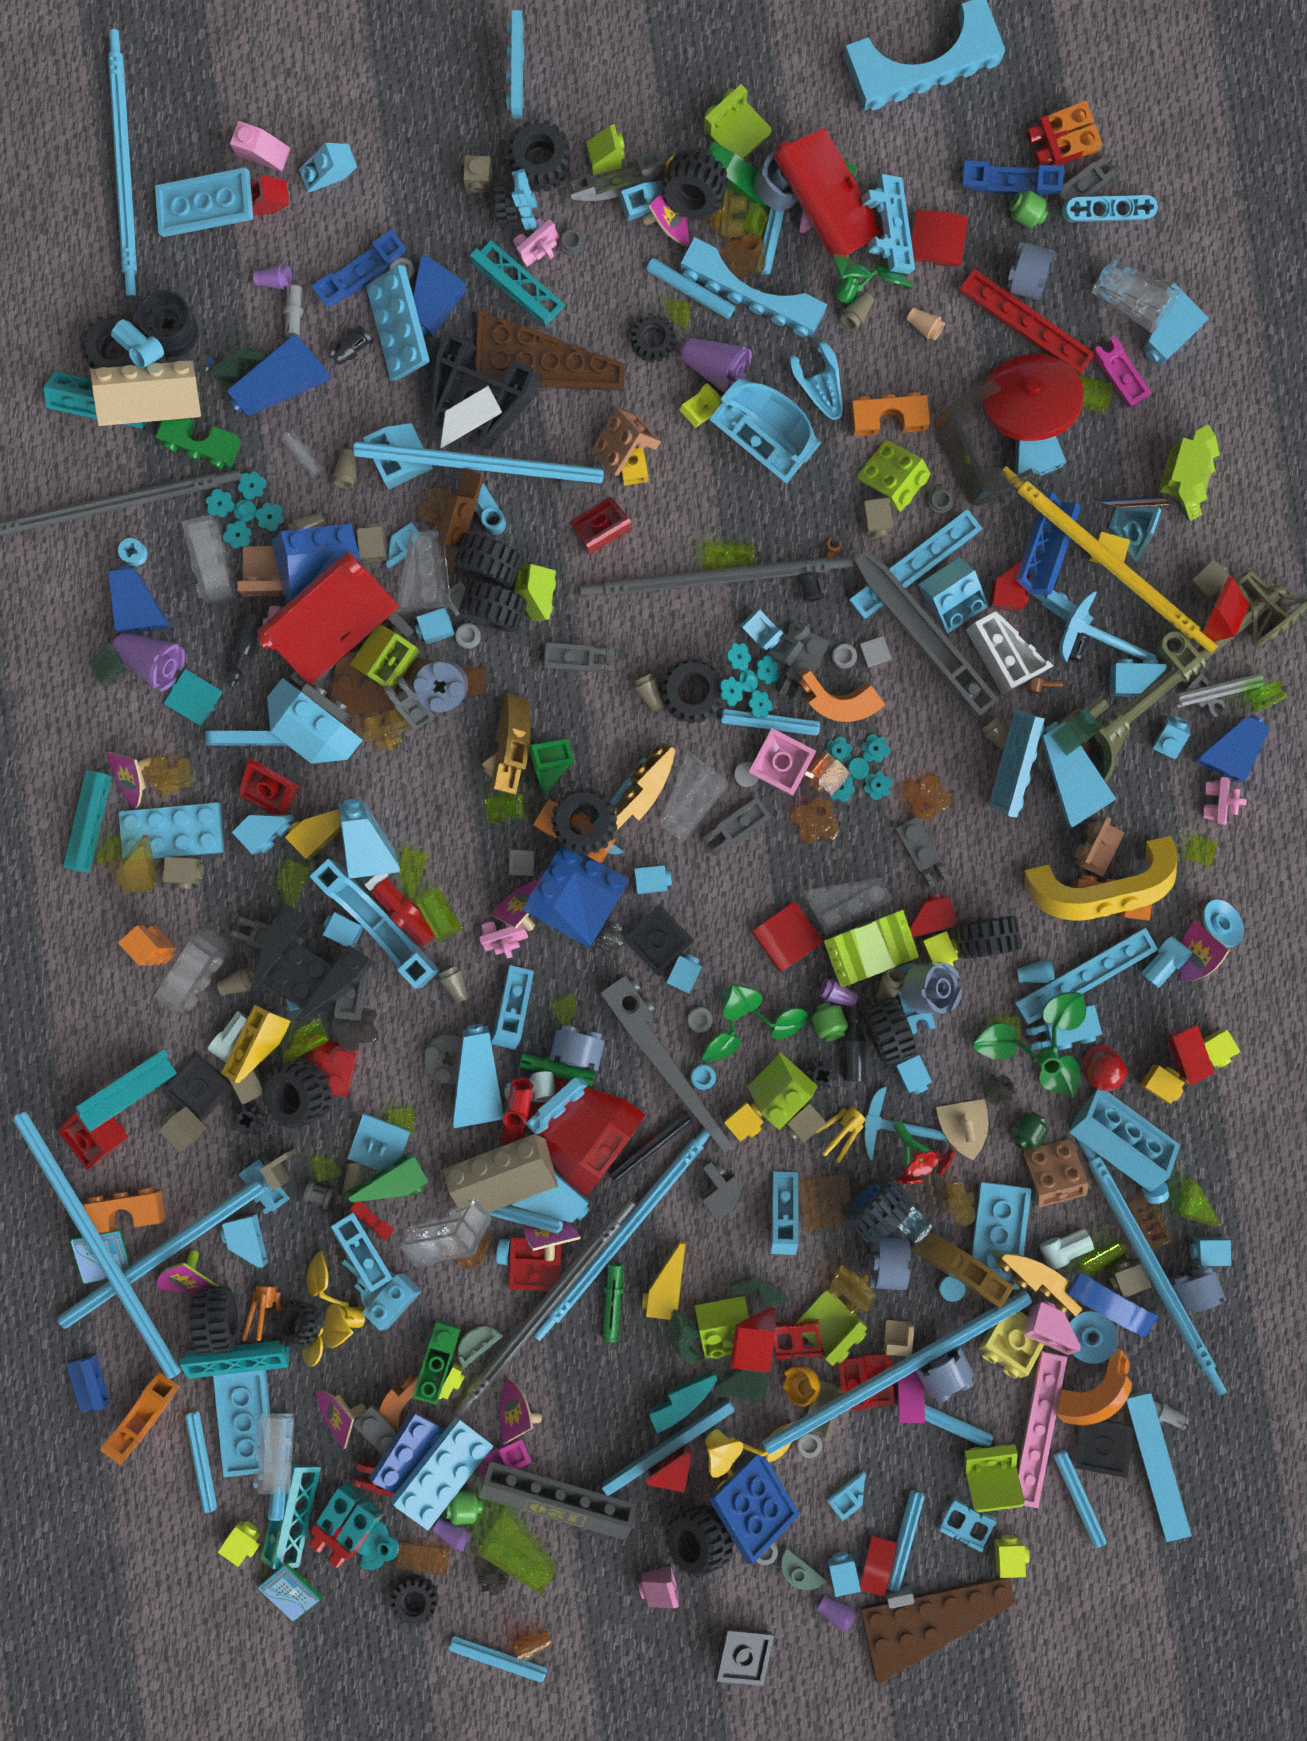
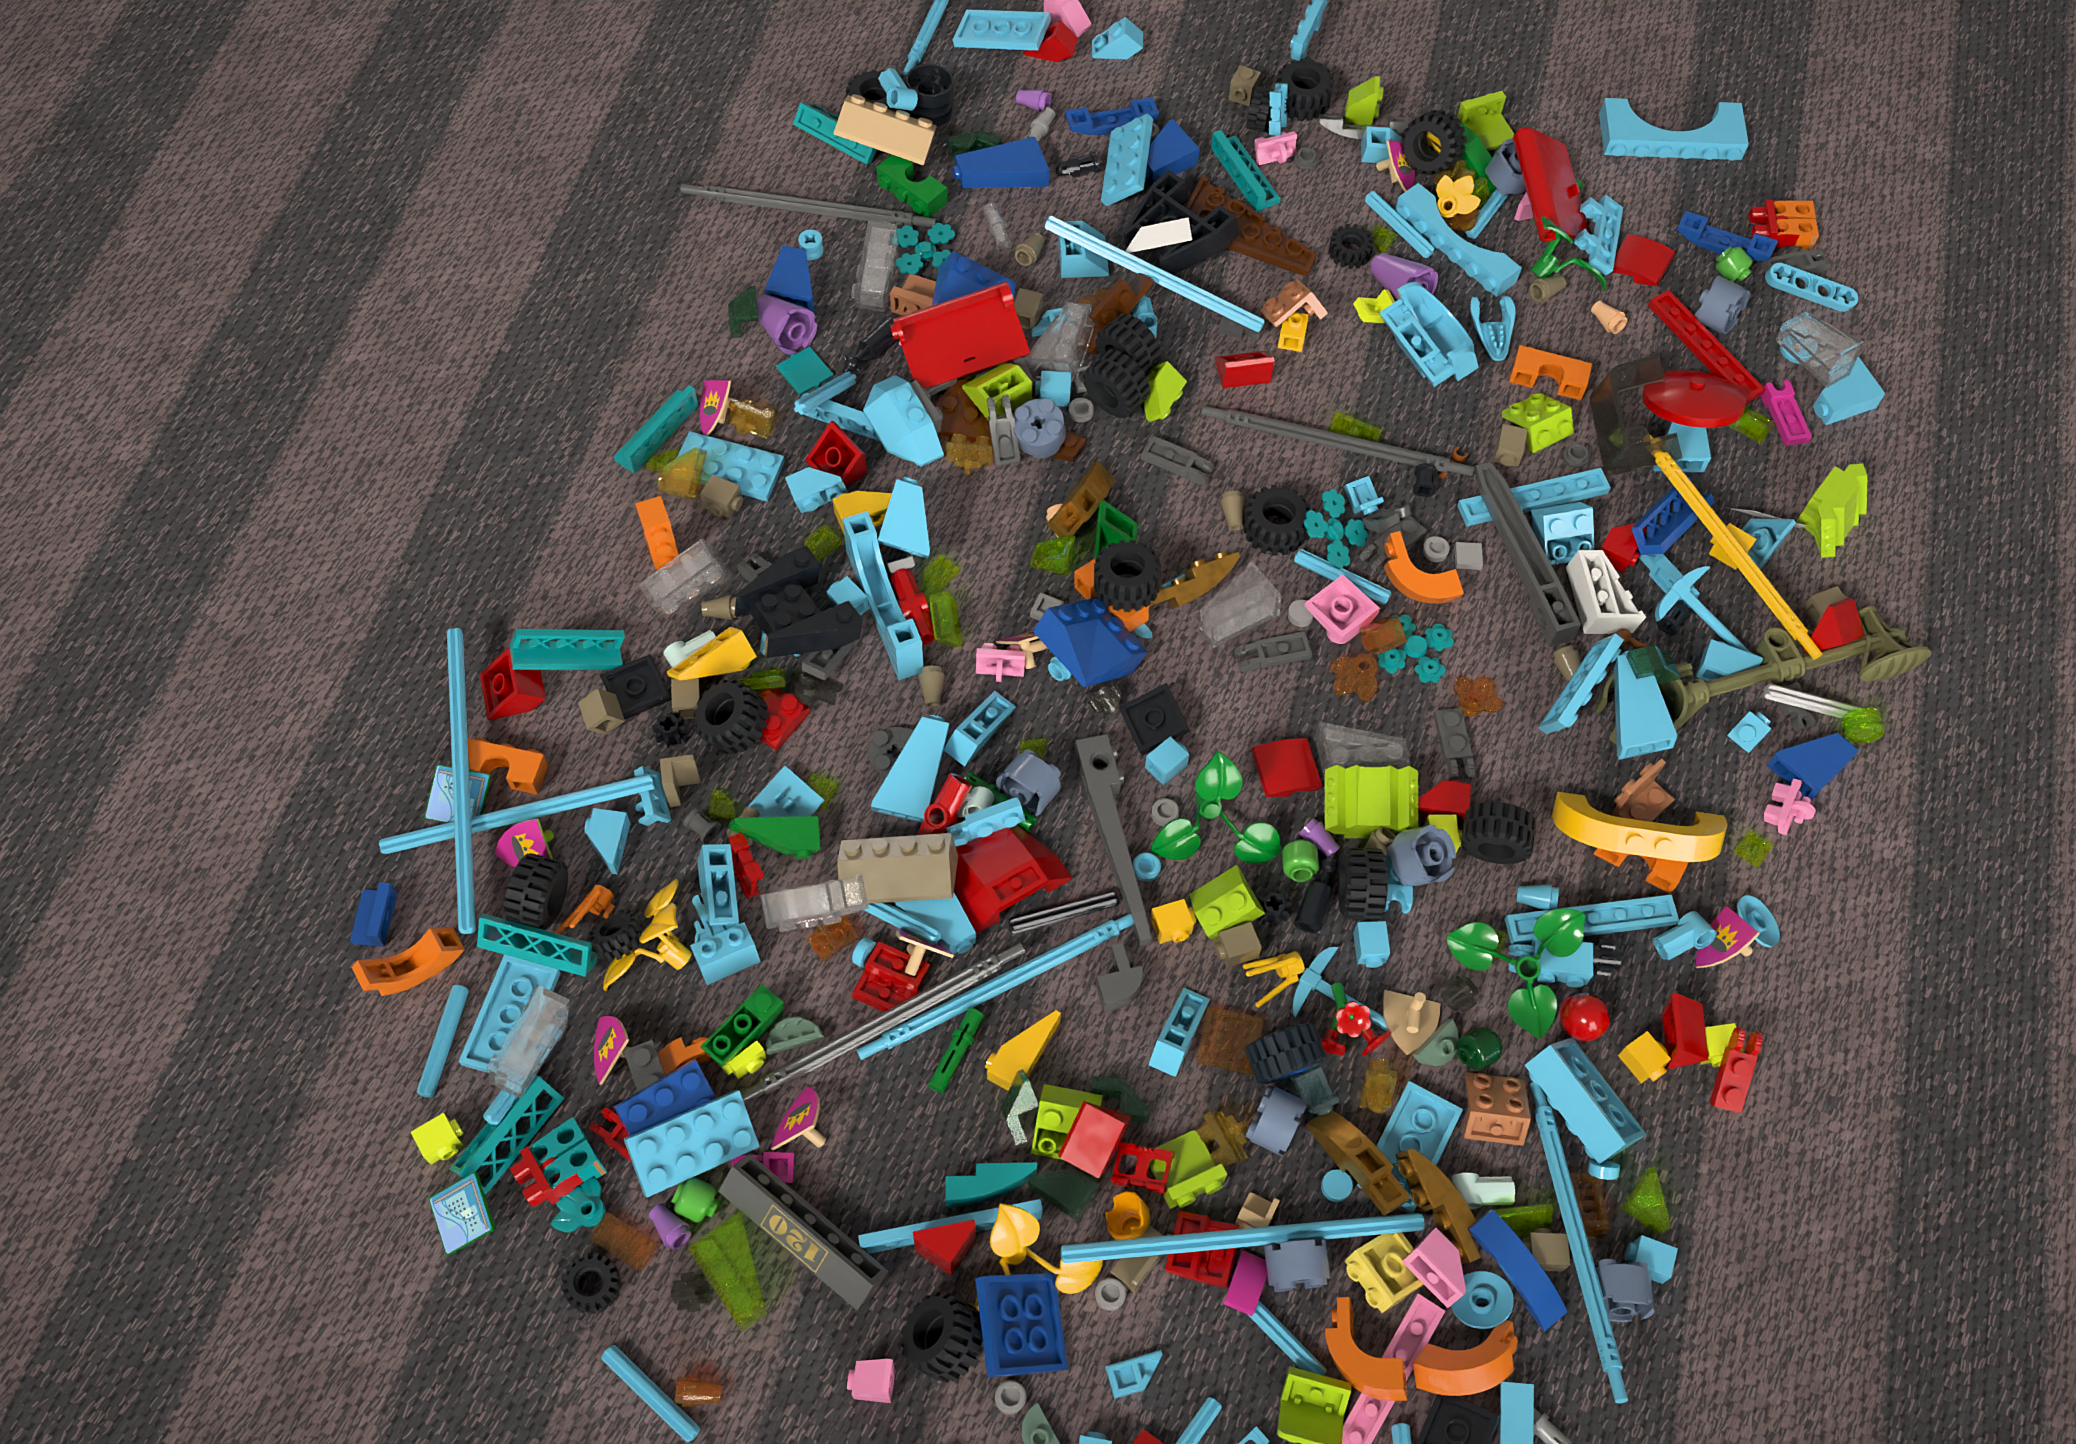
camera: 20 degrees right, 25 degrees down
(227, 727) = (825, 392): none -> medium azure axle
(652, 879) = (1169, 665): medium azure brick -> none
(738, 237) = (1459, 194): none -> yellow plate
(996, 1141) = (1439, 1046): none -> sand green plate
(1019, 1434) = (1370, 1375): none -> orange arch
(1107, 1008) = (1606, 957): none -> black gear
(1238, 1070) = (1736, 1071): none -> hinge

